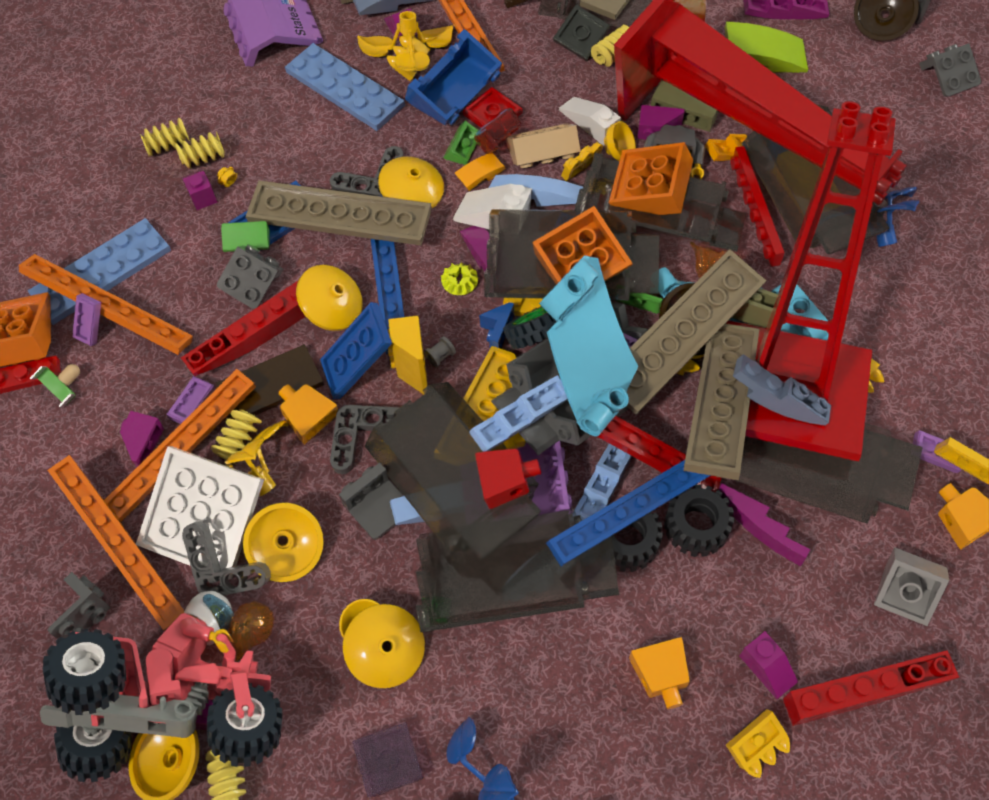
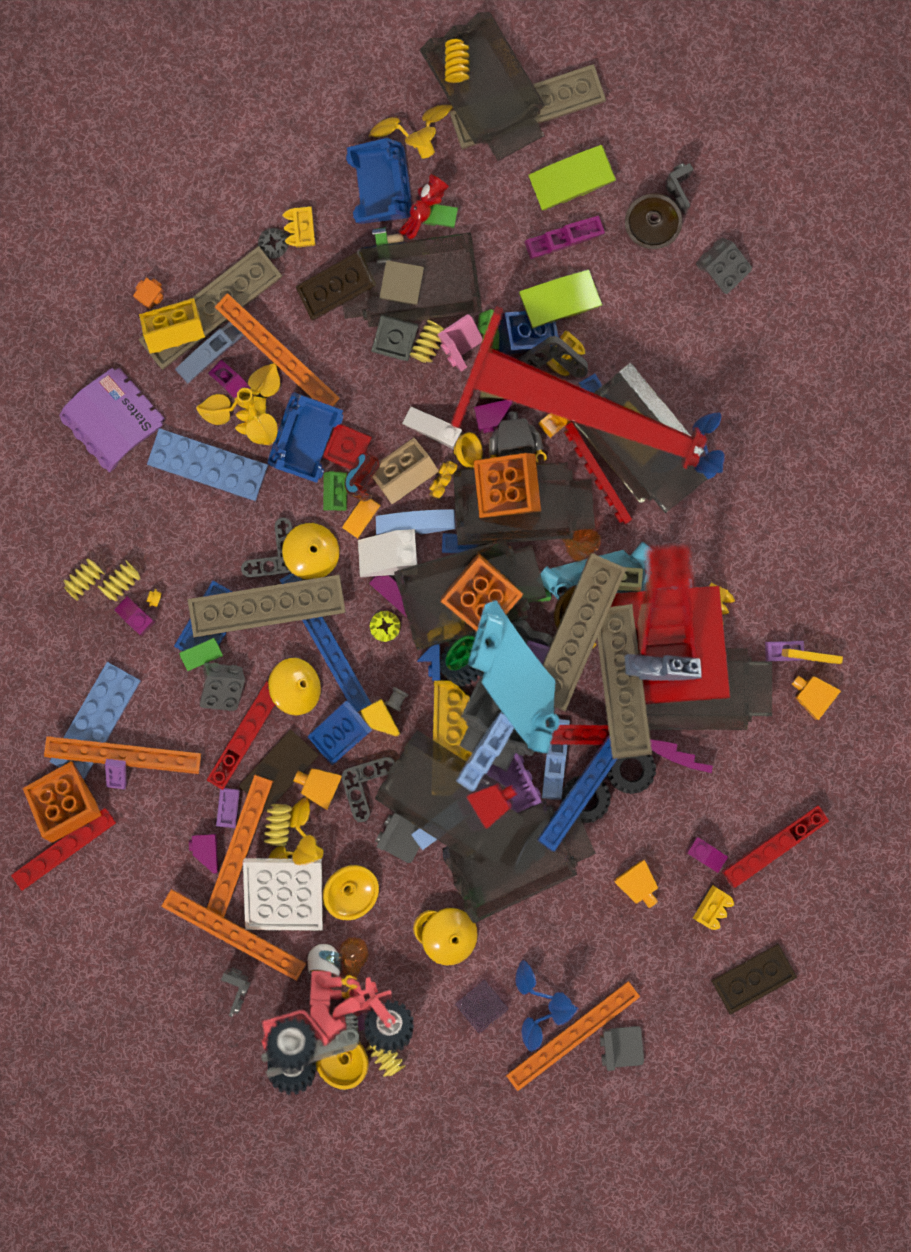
camera: 25 degrees left, 25 degrees up
(58, 383) = (120, 830): piece -> none
(212, 572) = (312, 930): dark grey beam -> none
(911, 586) = (787, 763): light grey slope -> none

